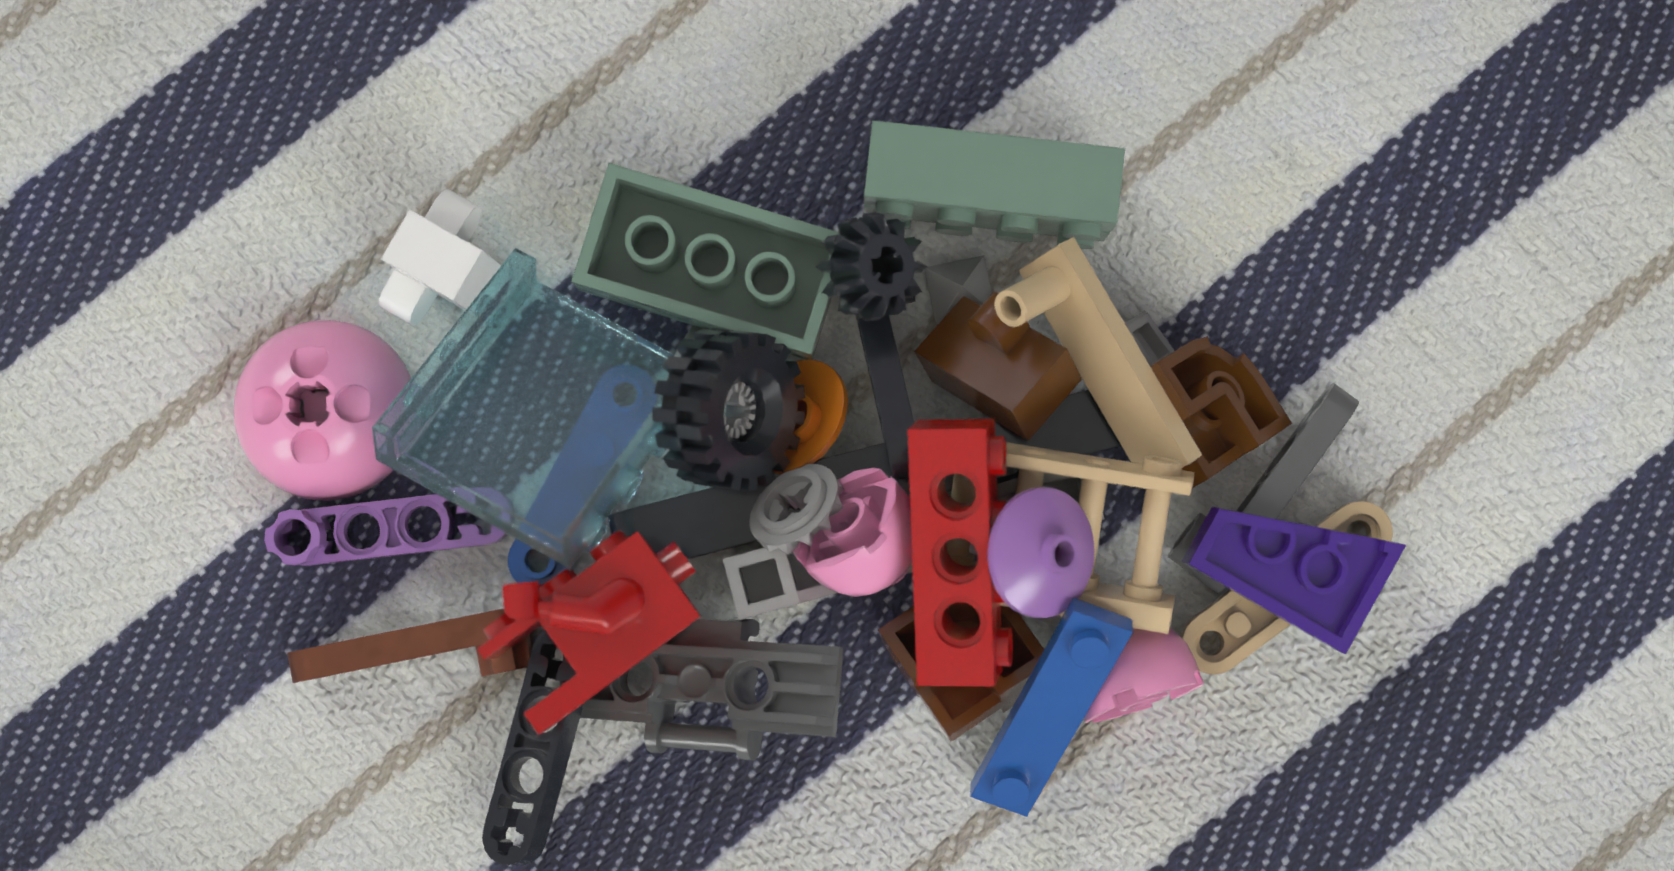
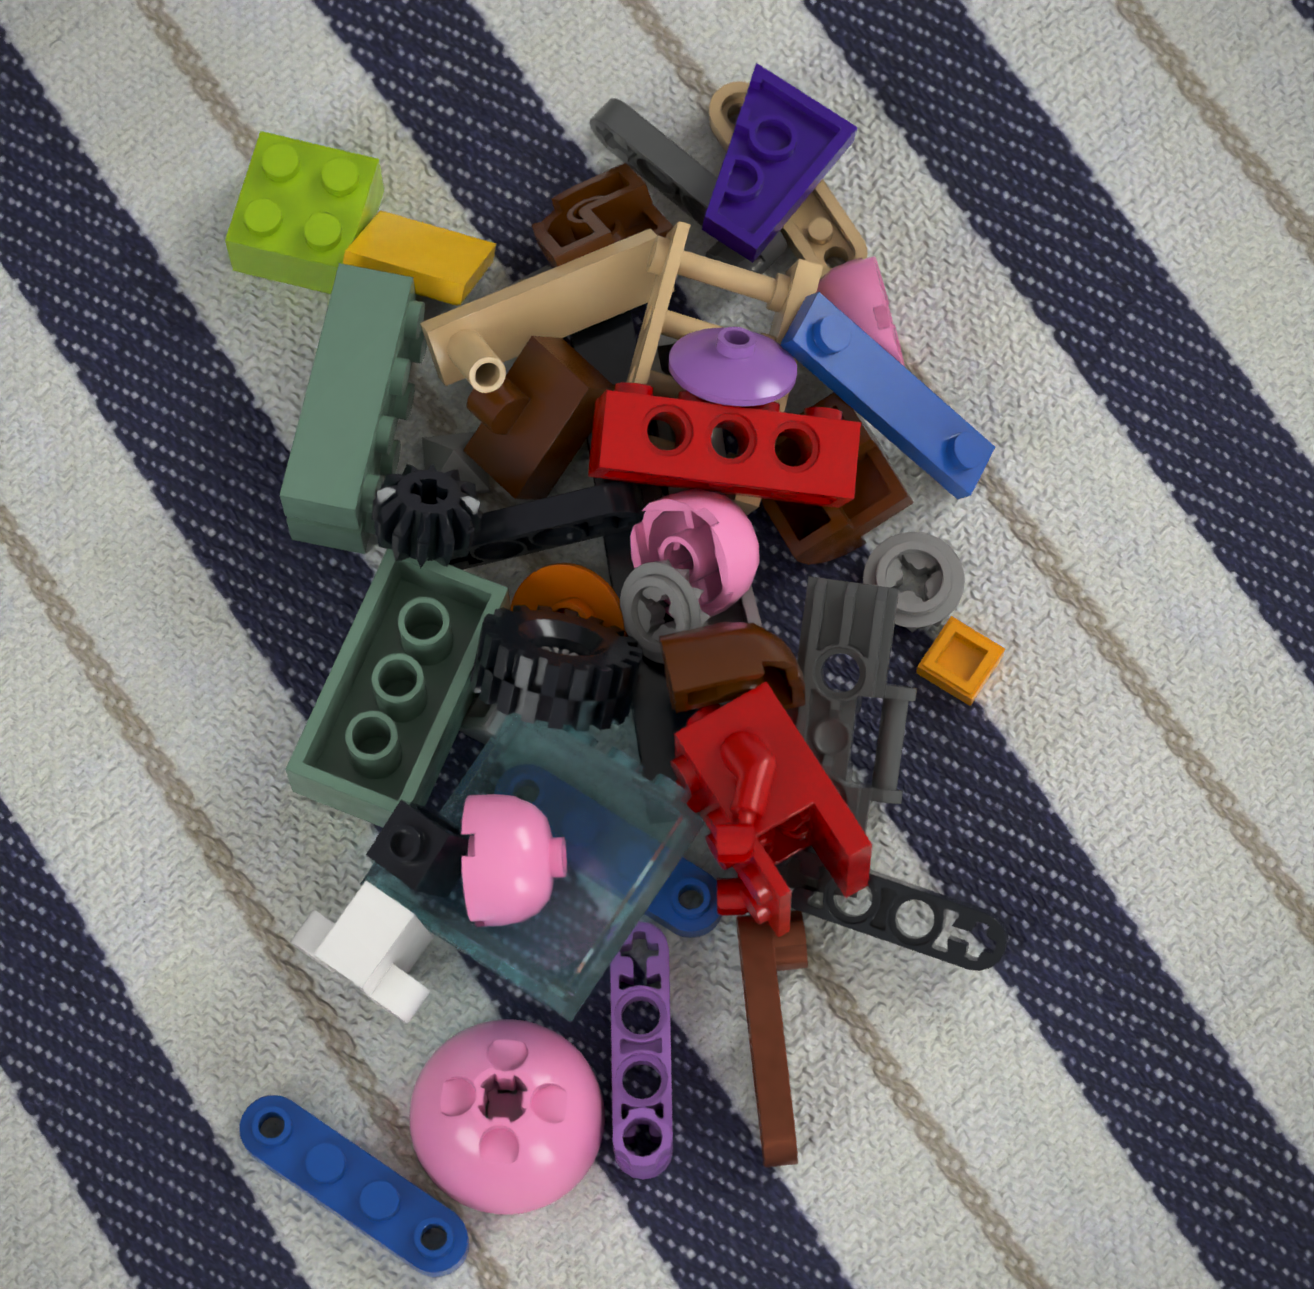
camera: 85 degrees left, 15 degrees down
(246, 278) = (354, 1186): none -> blue plate
(523, 383) = (508, 860): none -> bright pink cylinder
(542, 302) = (421, 849): none -> black brick
(725, 574) = (727, 661): none -> reddish brown brick
(804, 798) = (960, 660): none -> light orange tile
(908, 752) = (922, 556): none -> light grey gear
(1161, 229) = (438, 259): none -> yellow tile
(1201, 112) = (301, 211): none -> lime brick

